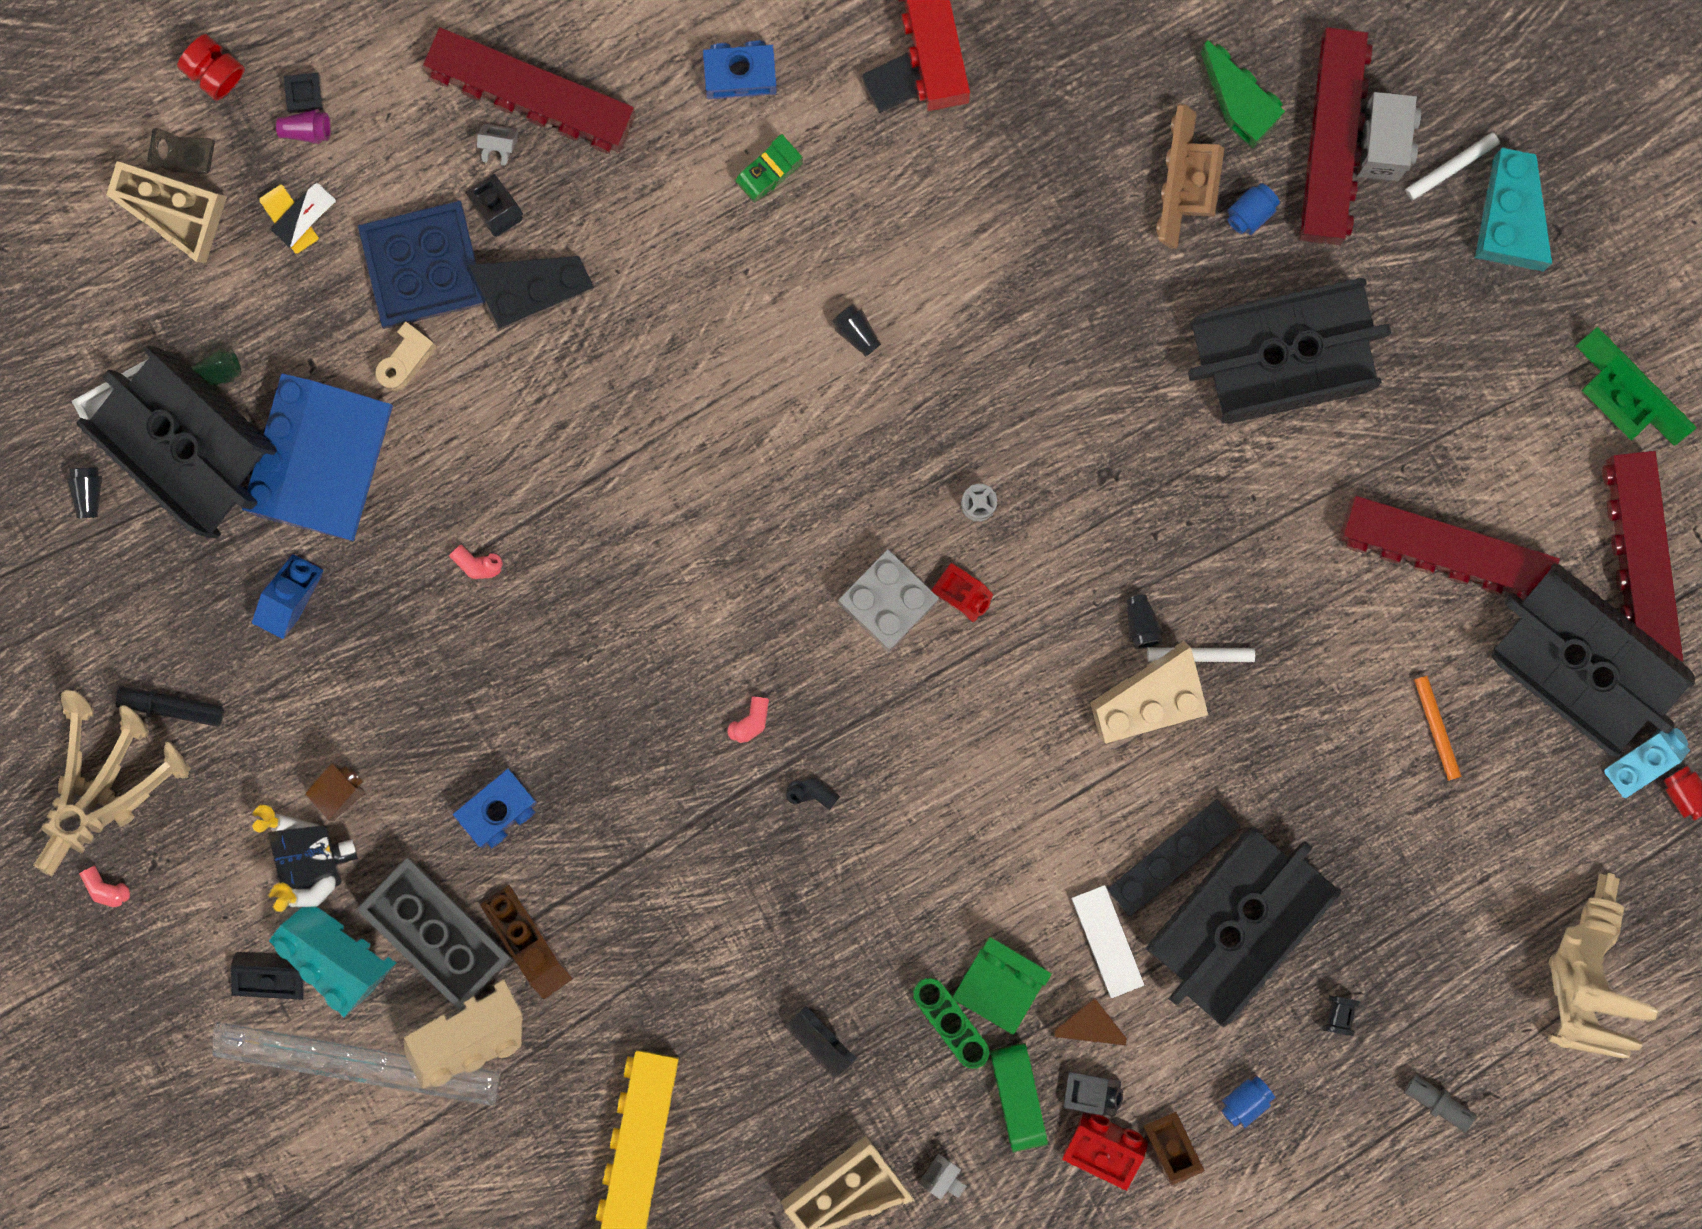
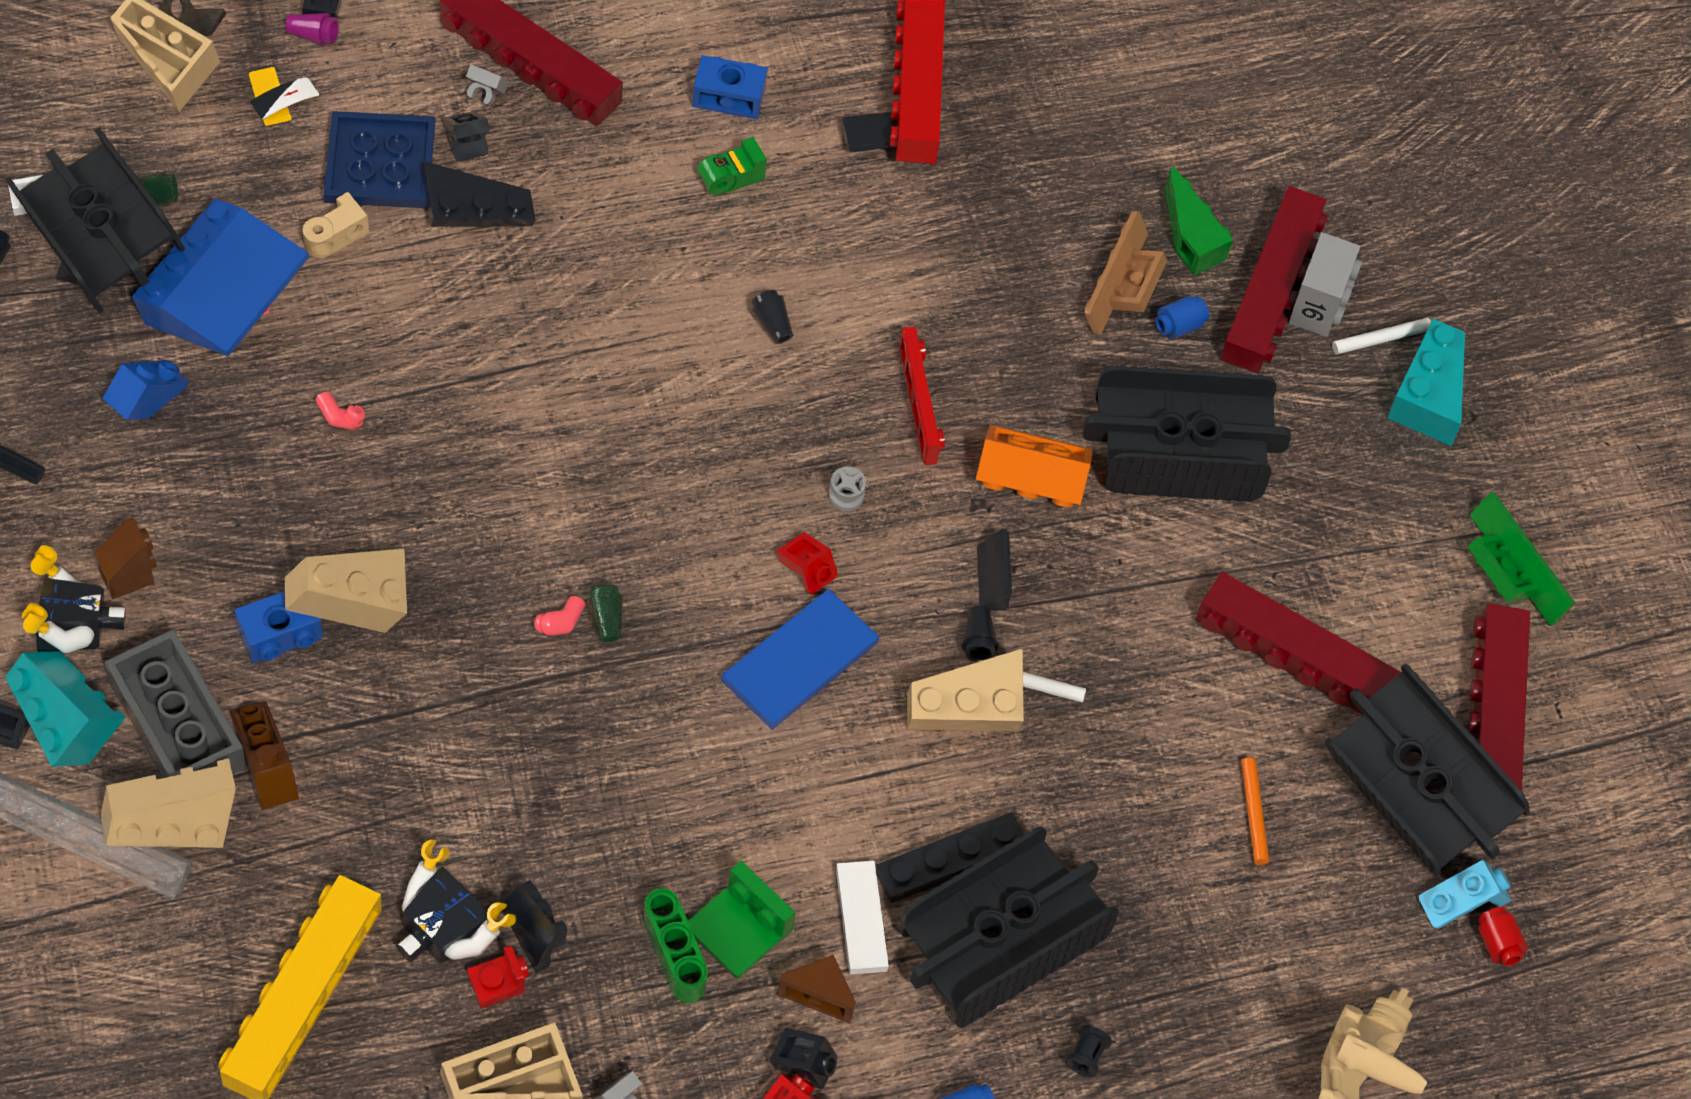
camera: 15 degrees right, 25 degrees down
(556, 761) = (350, 588): none -> tan wedge
(739, 1056) = (445, 914): none -> torso
(791, 703) = (606, 611): none -> clear green cone
(803, 1097) = (498, 978): none -> red bracket
(811, 789) = (600, 695): black arm -> none
(888, 601) = (731, 545): light grey brick -> none
(982, 695) = (800, 659): none -> blue tile
(1002, 333) = (912, 355): none -> red plate
(1018, 1097) = (725, 1038): green beam -> none
(1139, 550) = (995, 571): none -> black slope
(1150, 421) = (1034, 466): none -> orange slope

